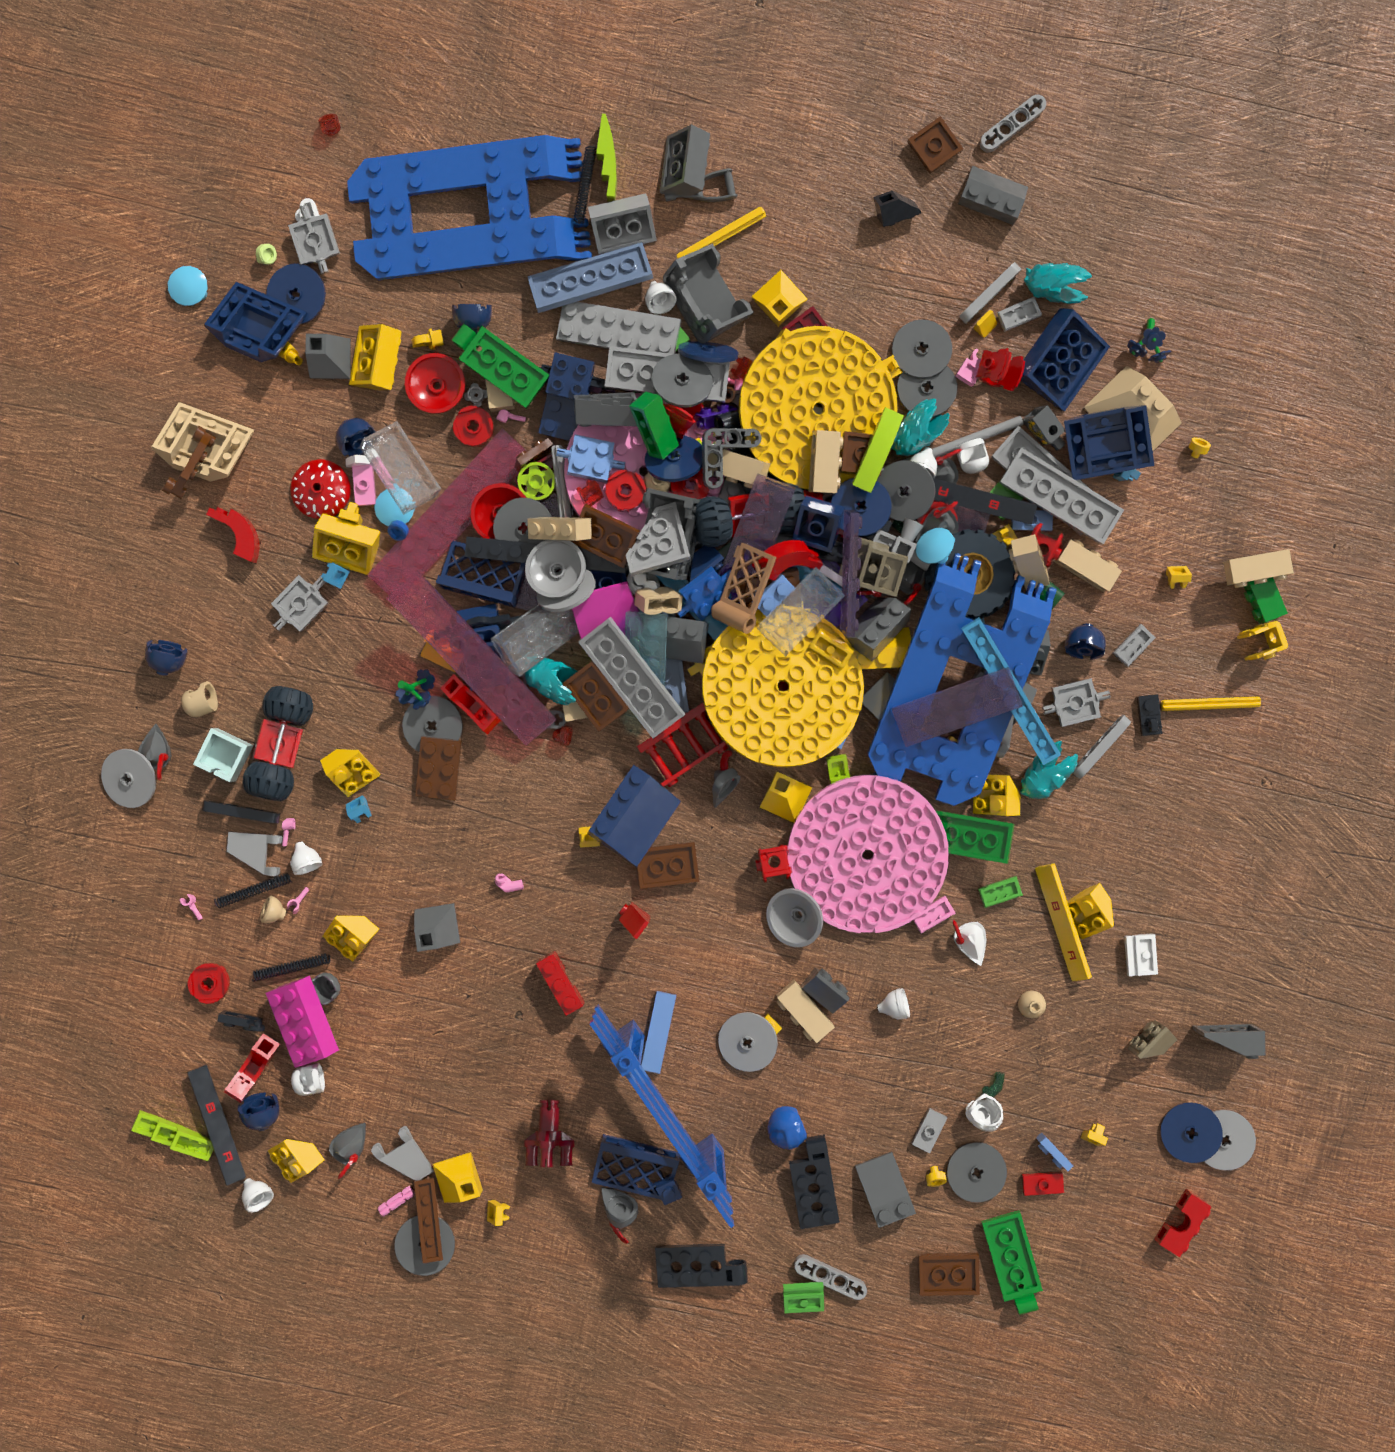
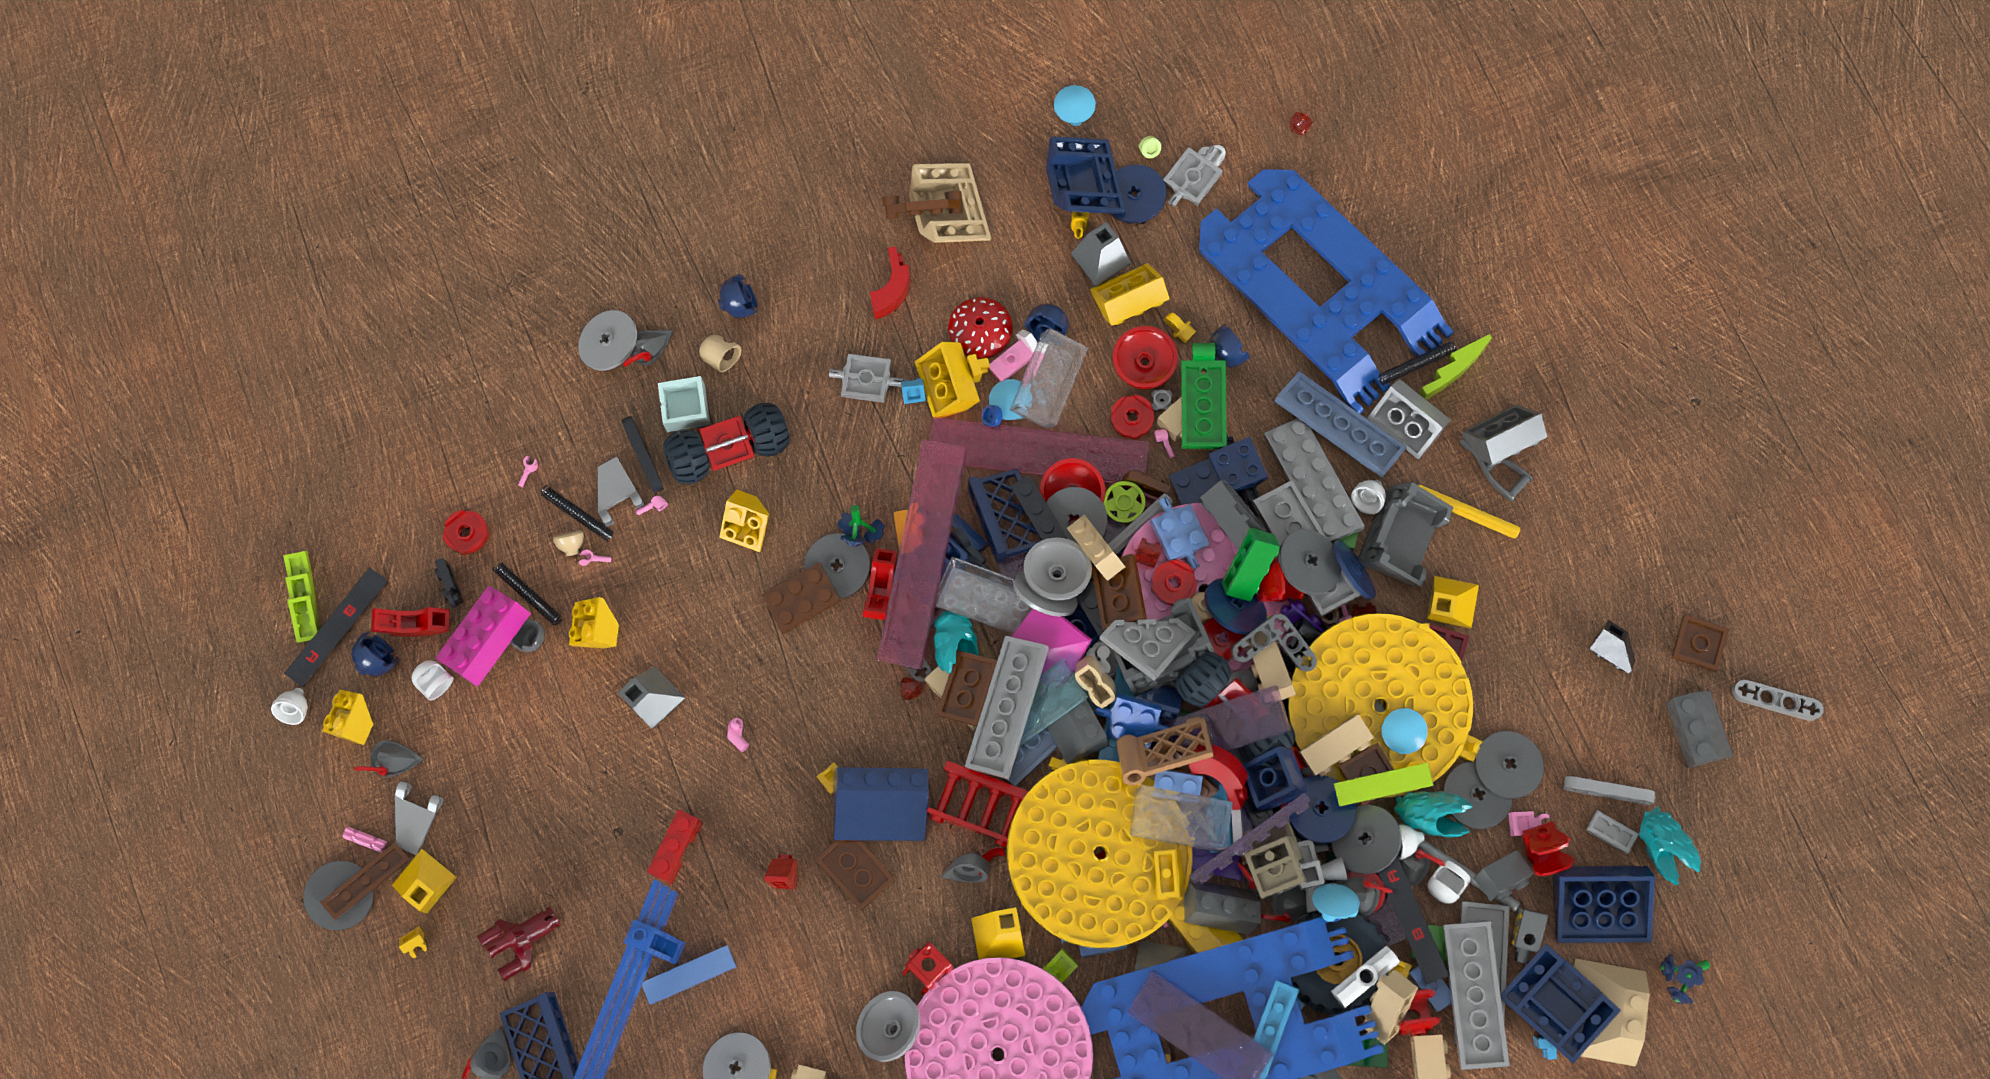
camera: 60 degrees right, 15 degrees down
(304, 859) = (635, 538): white helmet -> none
(358, 807) = (715, 551): dark azure tile -> none
(849, 405) = (1404, 731): none -> medium azure dish
(986, 324) = (1578, 807): yellow slope -> none
(997, 413) = (1503, 876): none -> dark grey brick
(999, 577) = (1377, 967): none -> white piece

